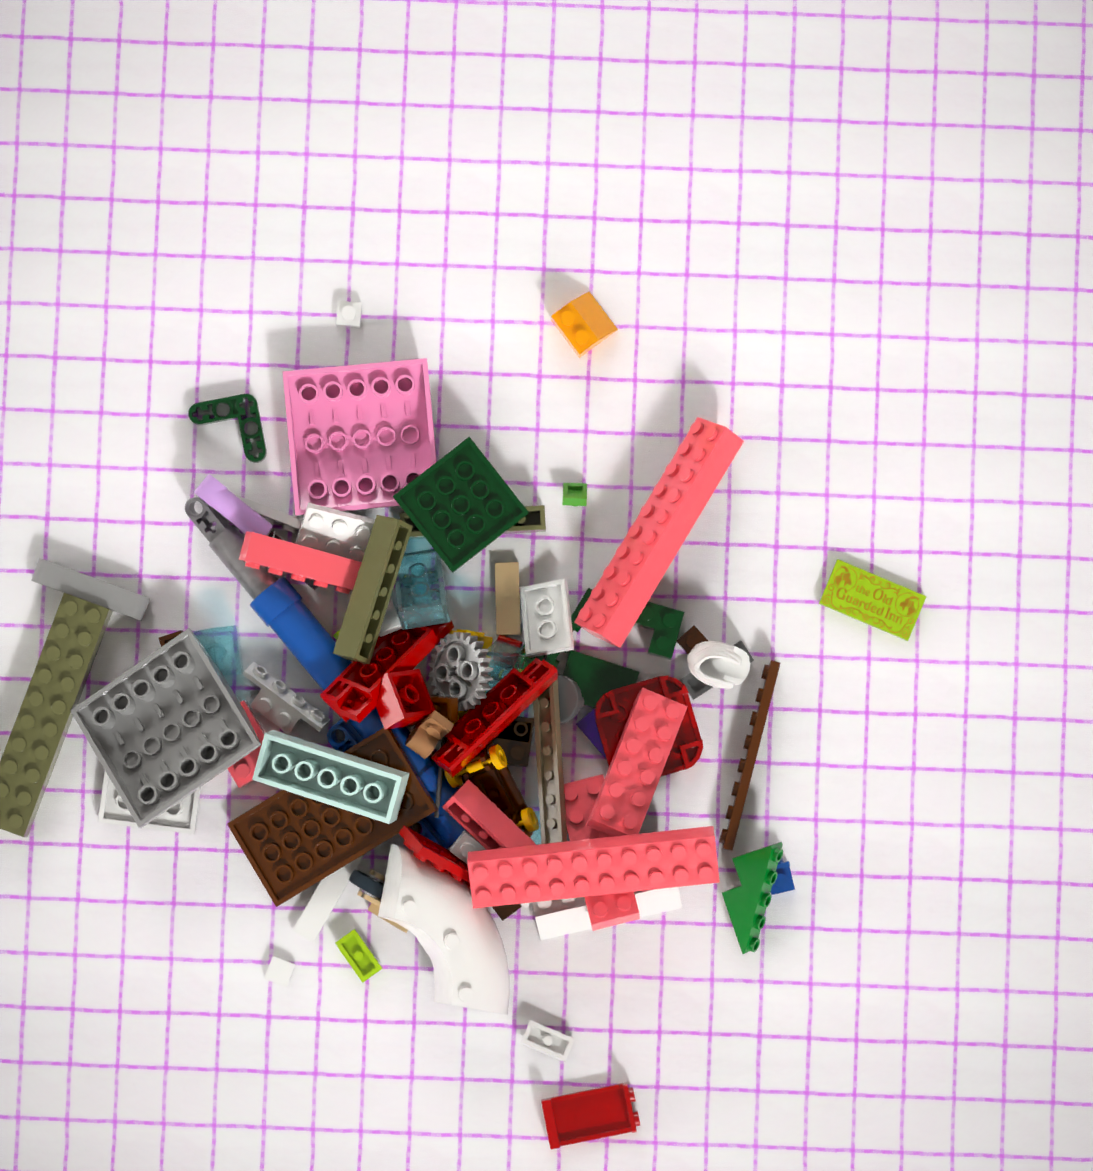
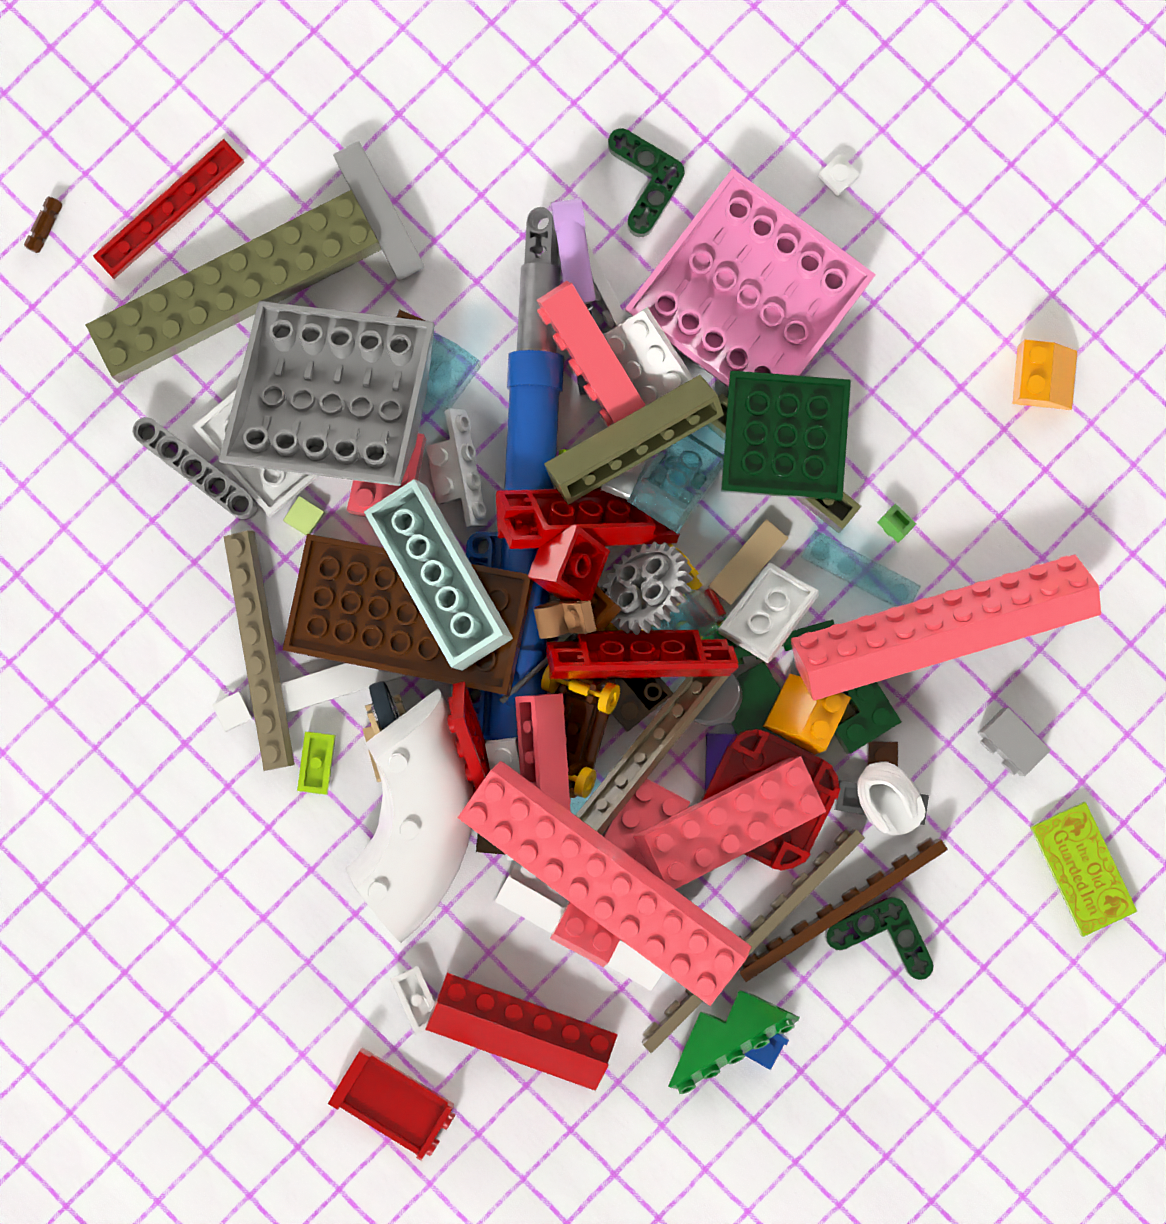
camera: 40 degrees right, 0 degrees up
(111, 850) = (182, 461): none -> light grey beam
(214, 815) = (303, 516): none -> yellowish green tile
(262, 920) = (259, 650): none -> dark tan plate
(578, 543) = (860, 570): none -> clear light blue plate
(624, 664) = (805, 721): none -> light orange slope
(627, 1002) = (521, 1031): none -> red slope
(713, 810) = (761, 928): none -> dark tan plate
(762, 562) = (1013, 742): none -> light grey brick
(792, 738) = (893, 927): none -> dark green beam

